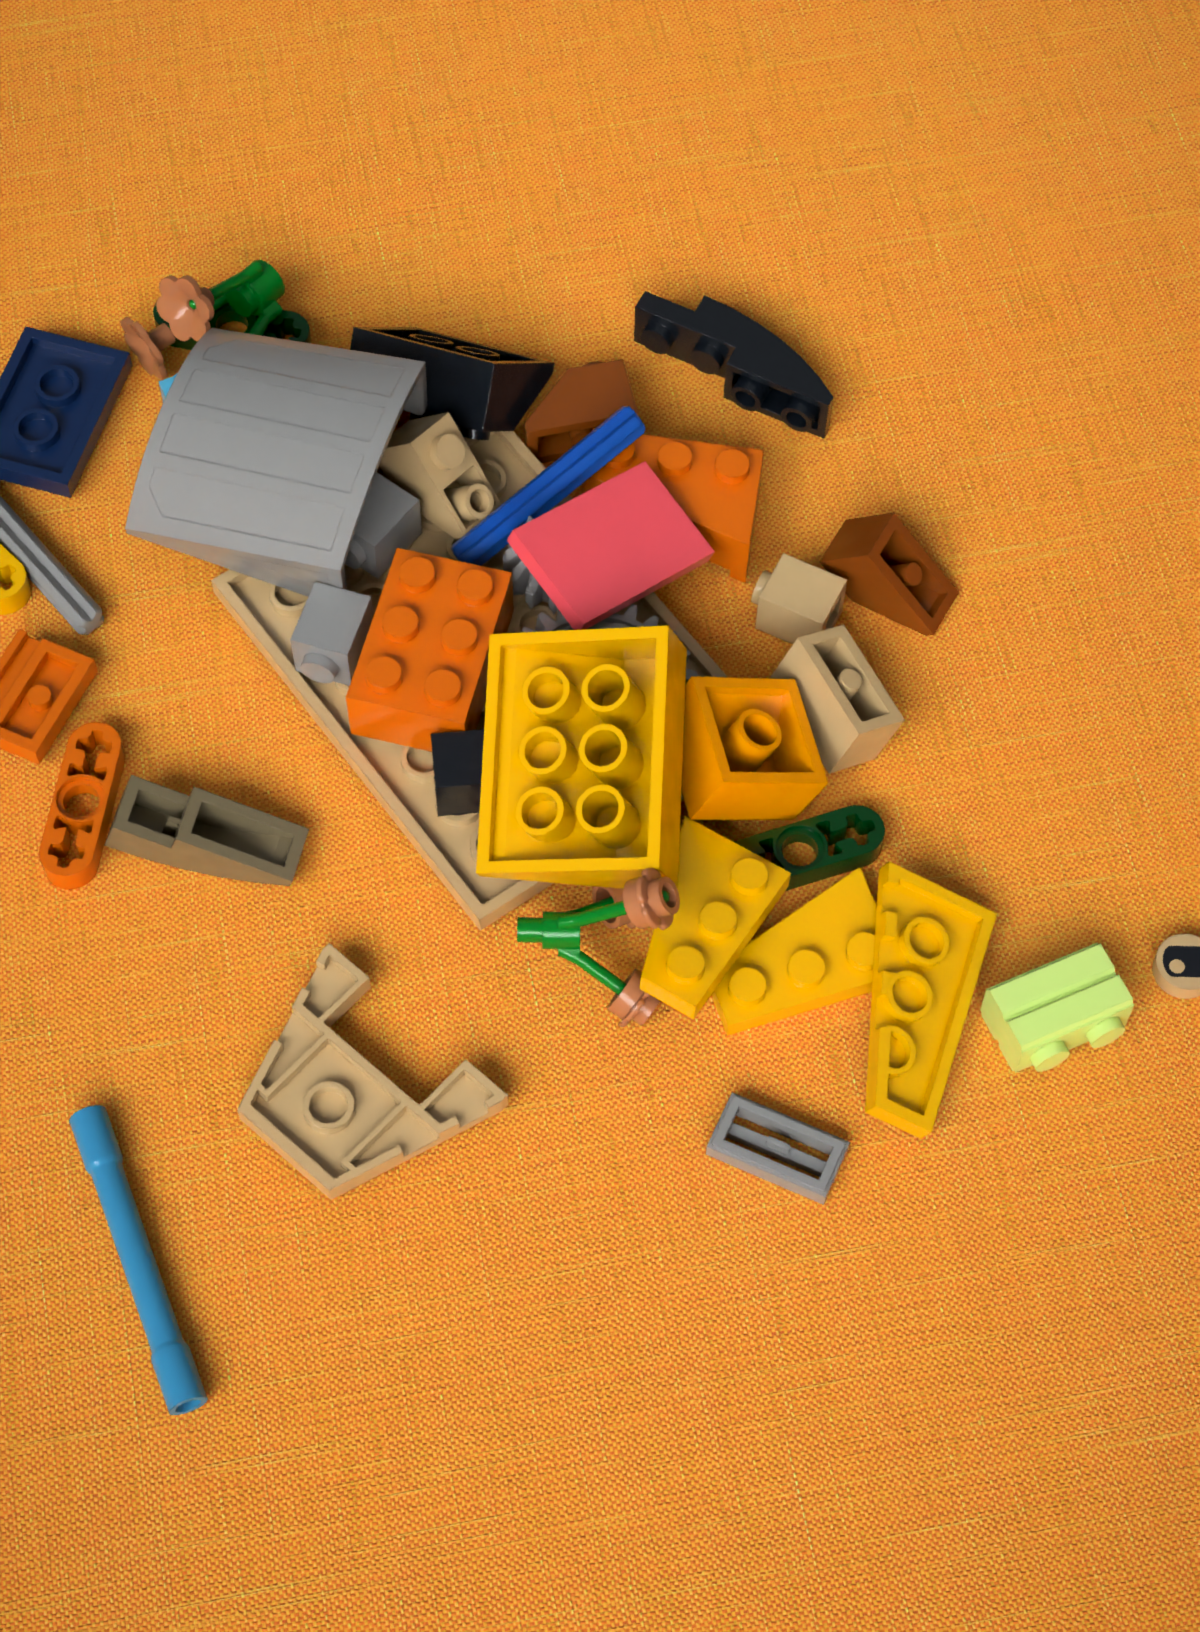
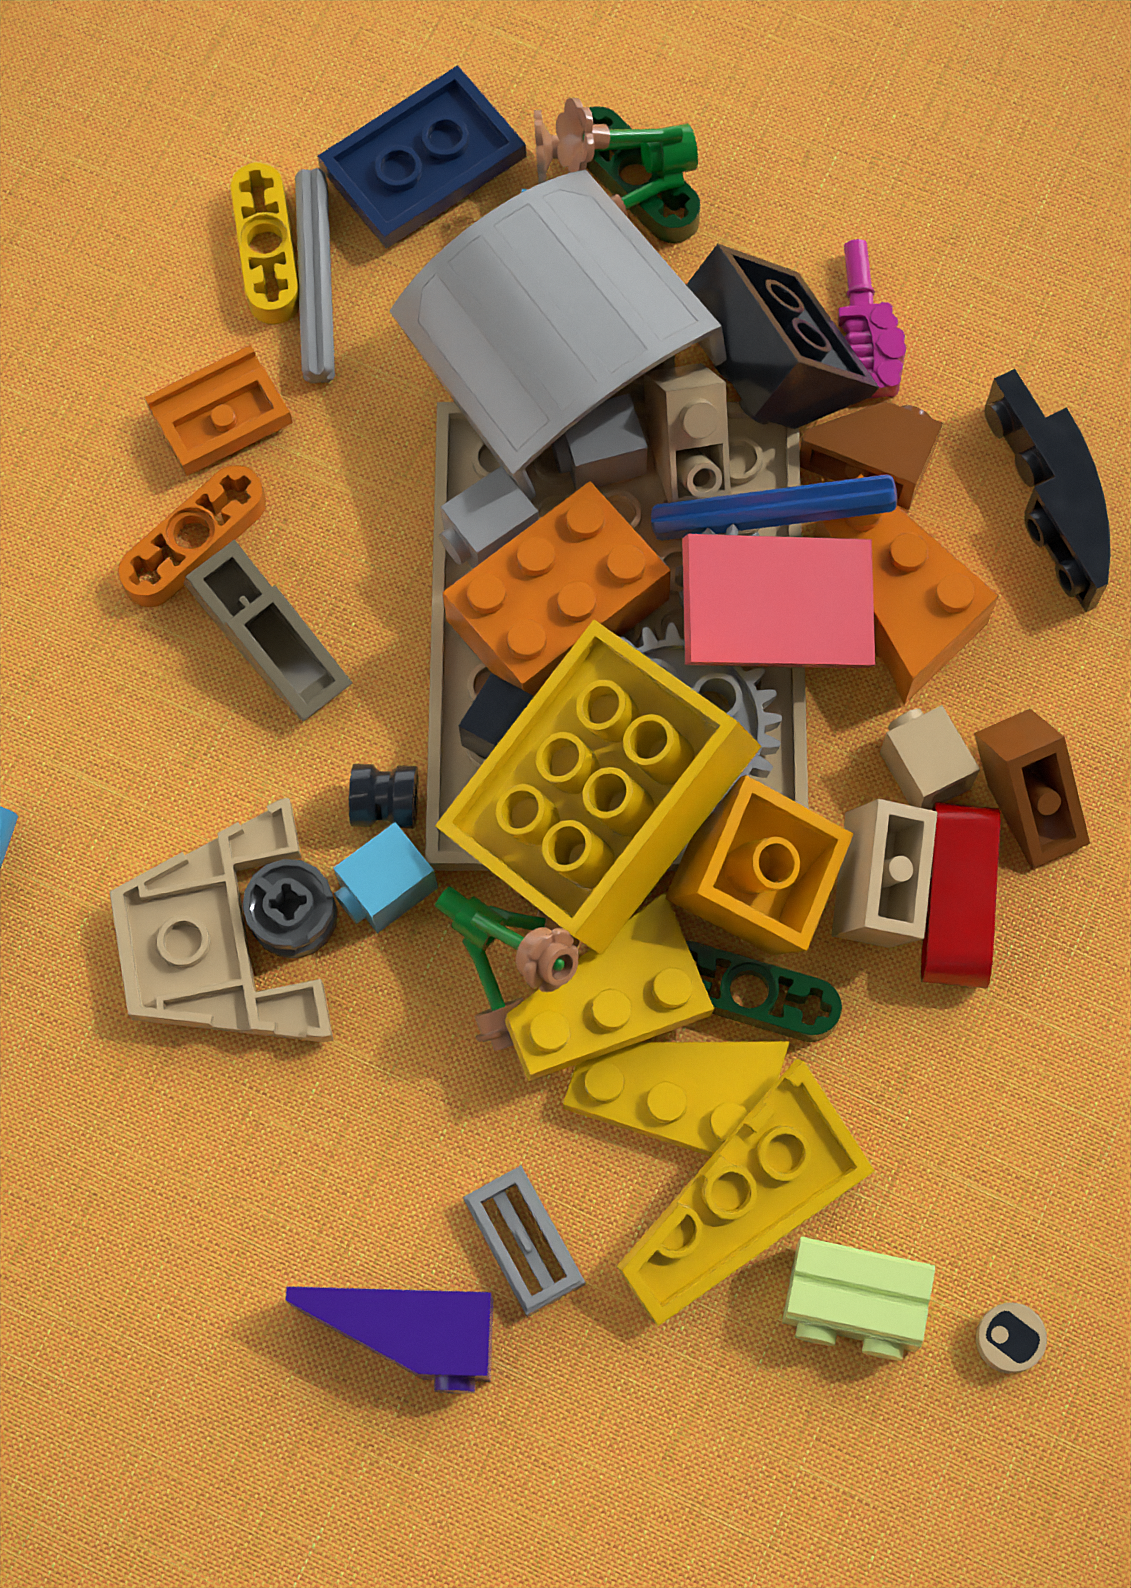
camera: 40 degrees right, 10 degrees up
(396, 1024) = (290, 908): none -> dark grey wheel
(404, 894) = (383, 795): none -> black wheel
(455, 953) = (383, 879): none -> medium azure brick
(502, 330) = (870, 326): none -> dark pink piece
(746, 1269) = (422, 1331): none -> dark purple slope
(928, 704) = (962, 897): none -> red beam

